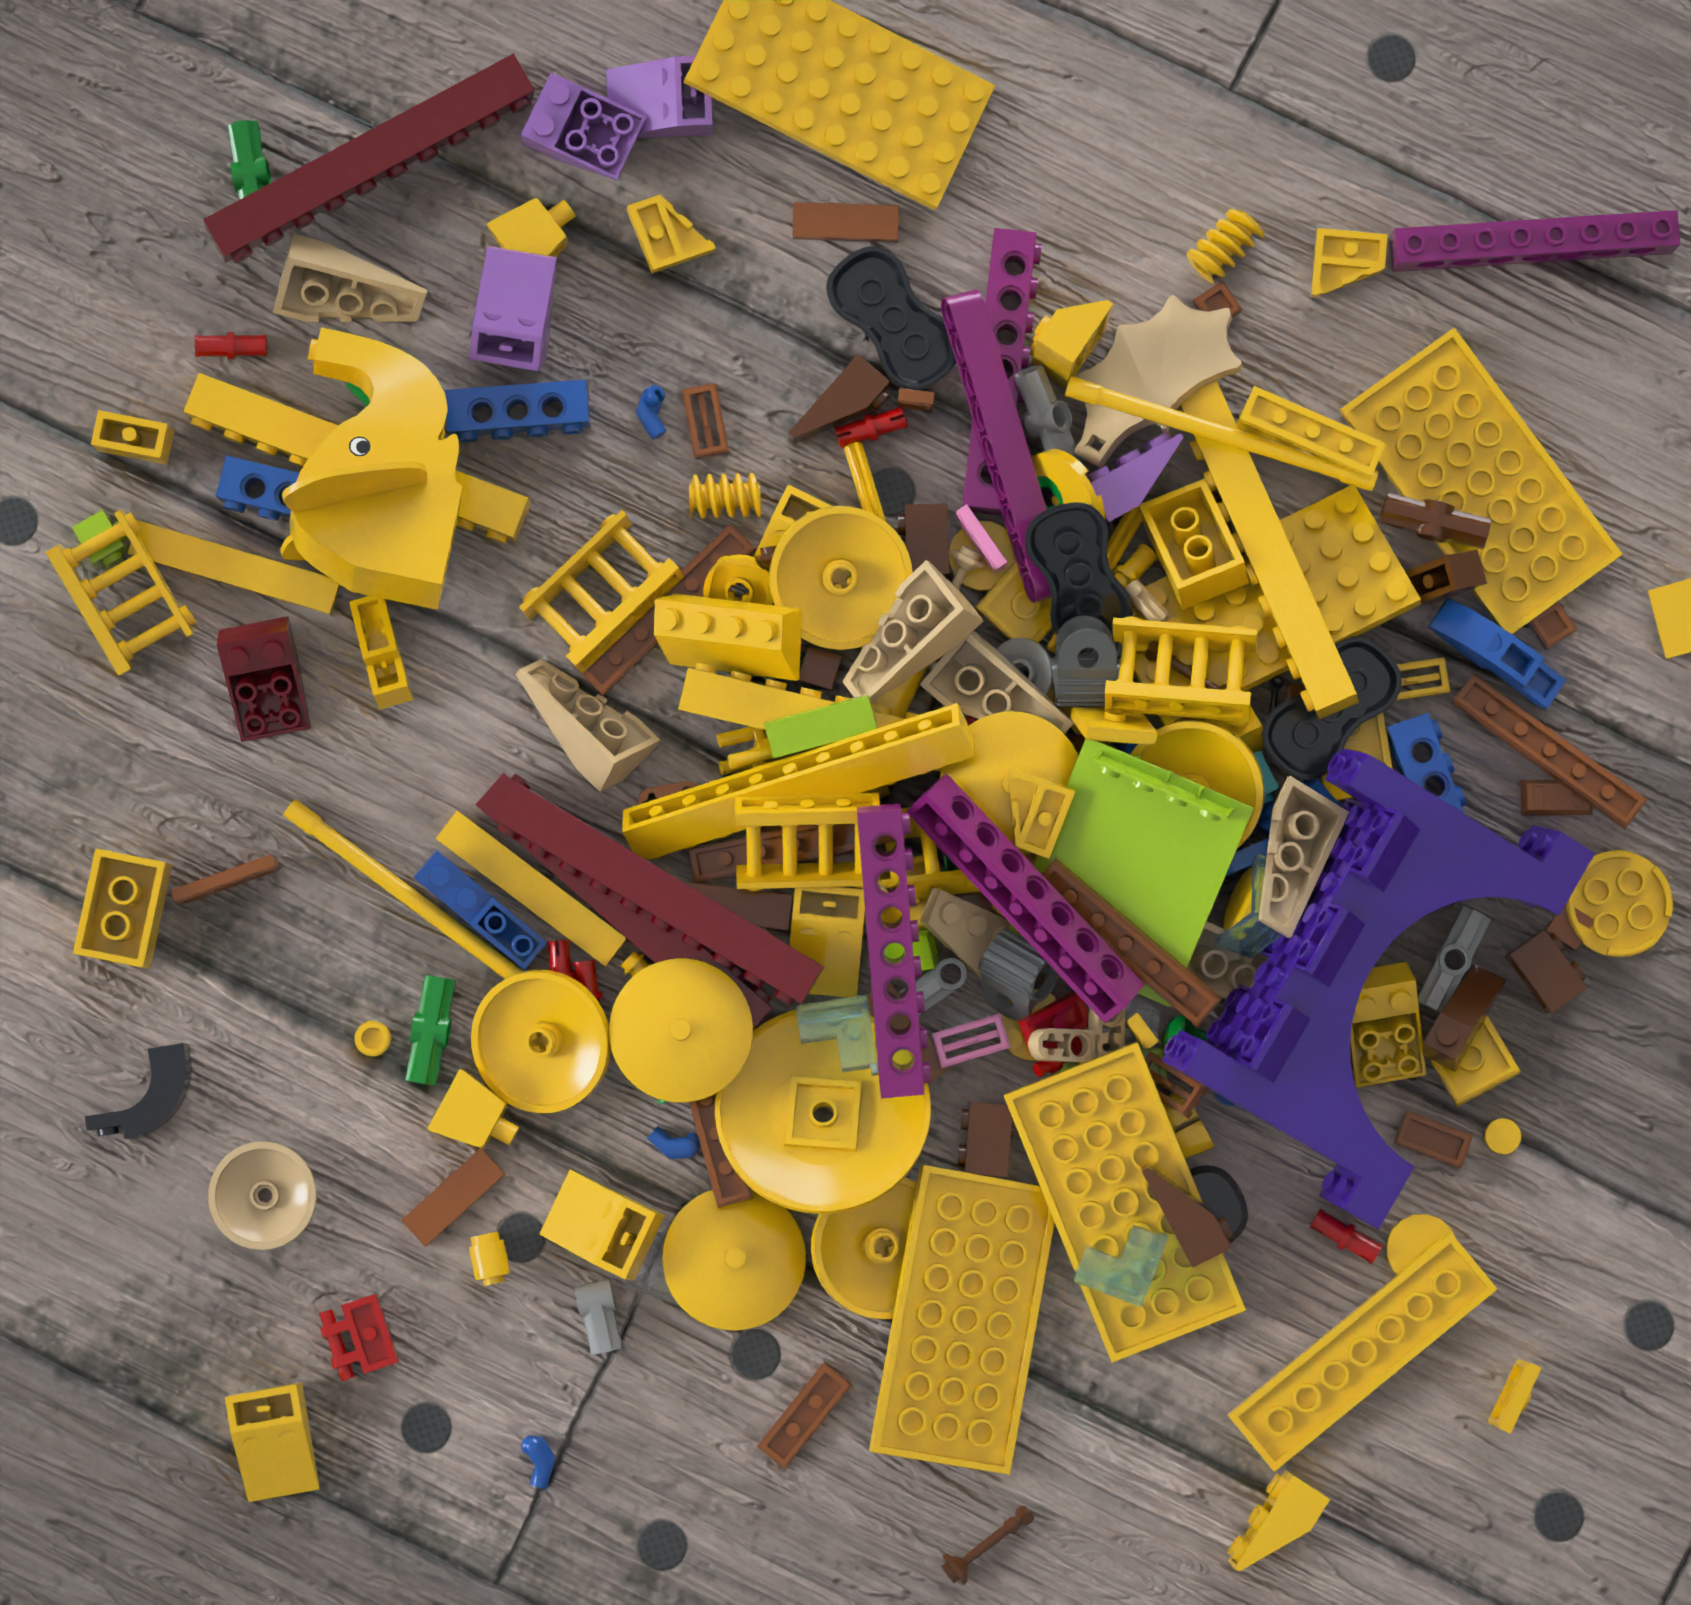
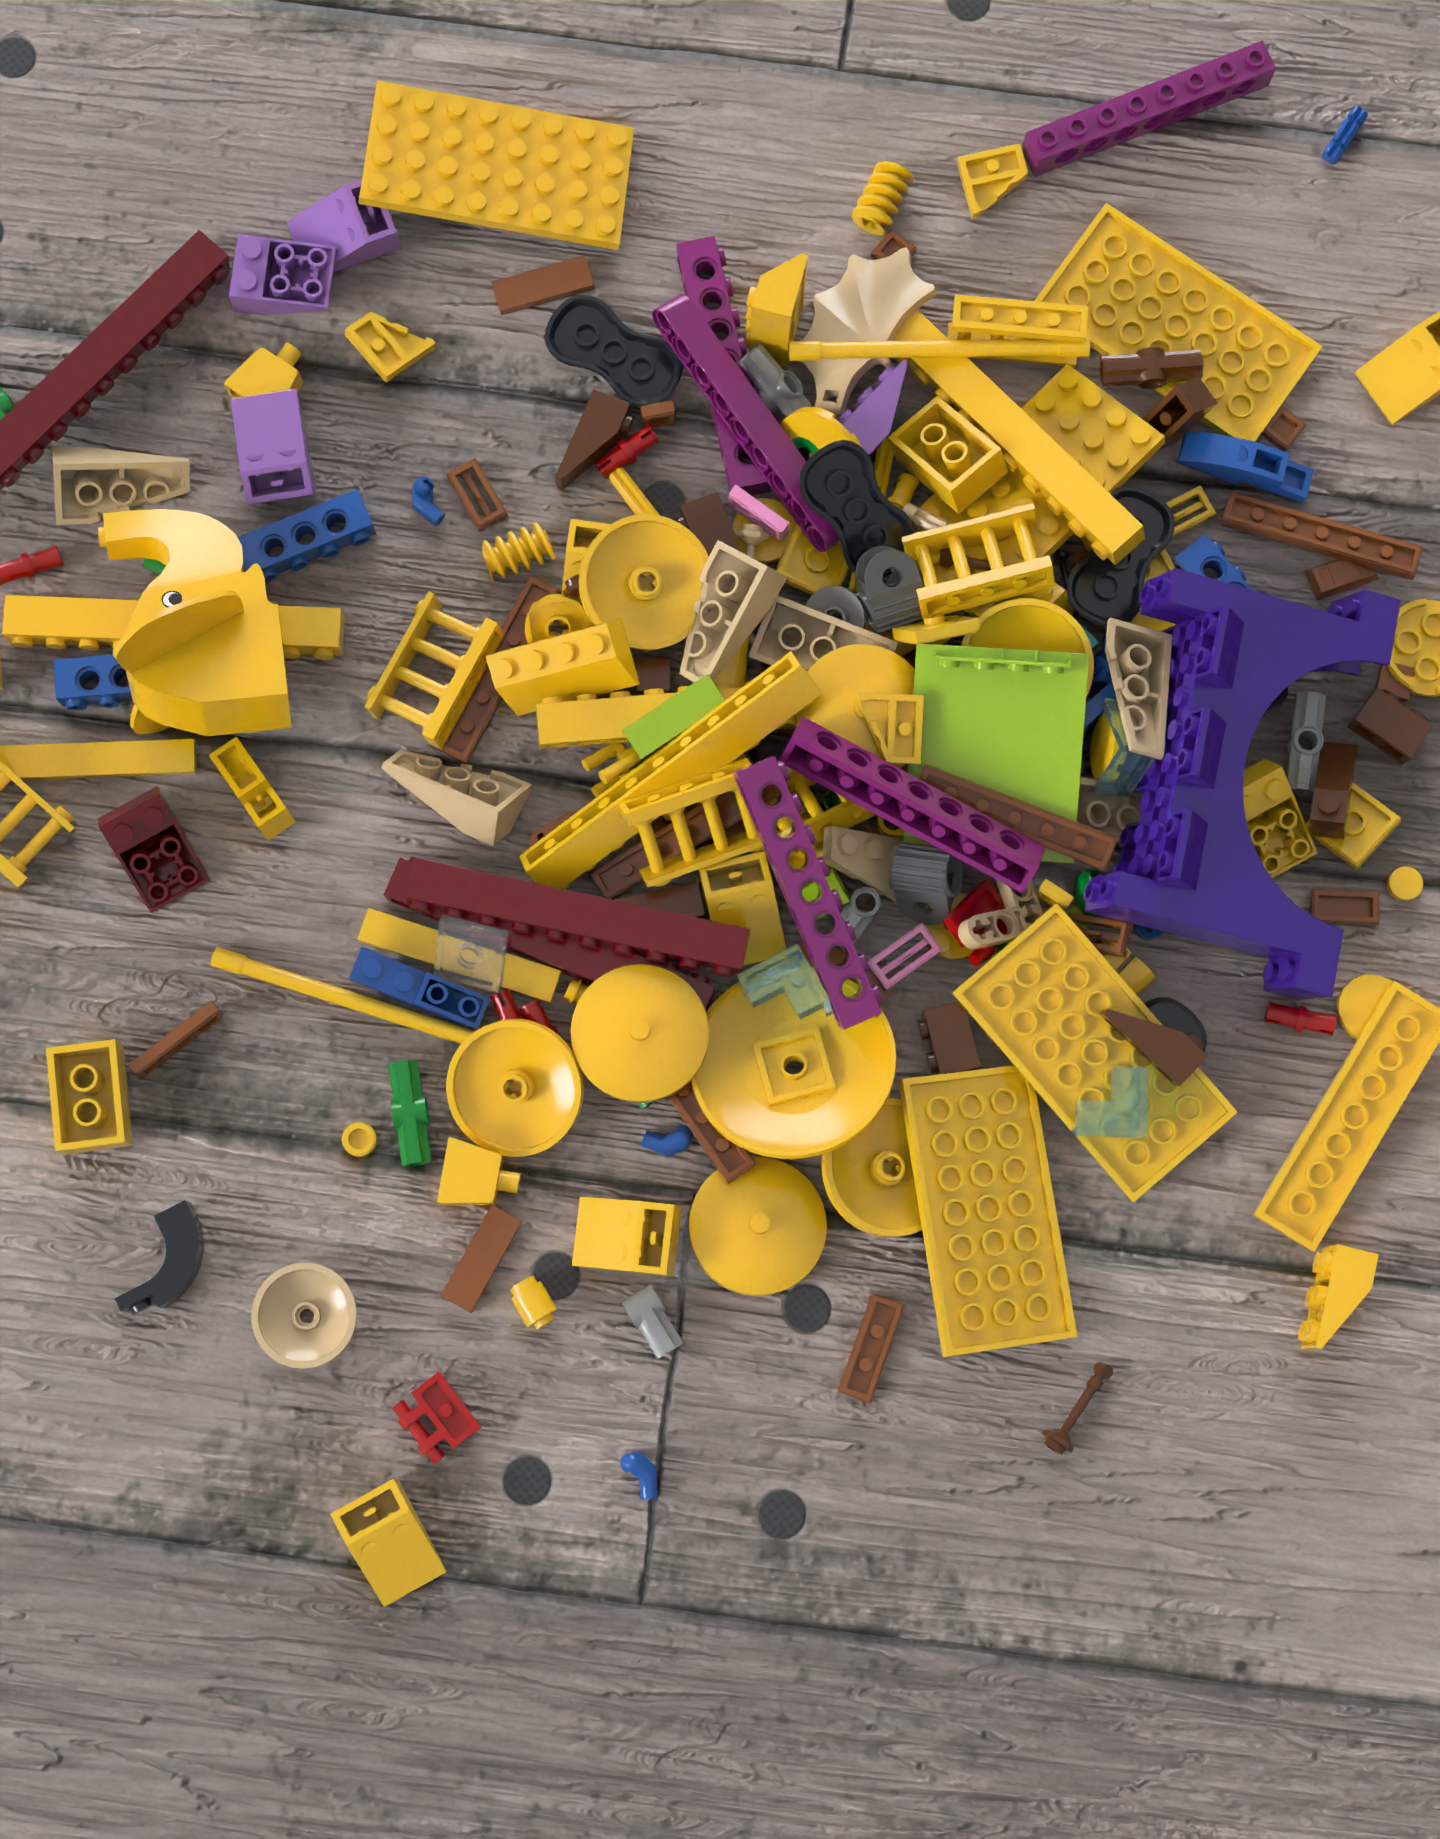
camera: 25 degrees left, 5 degrees down
(541, 893) = (470, 953): none -> clear tile

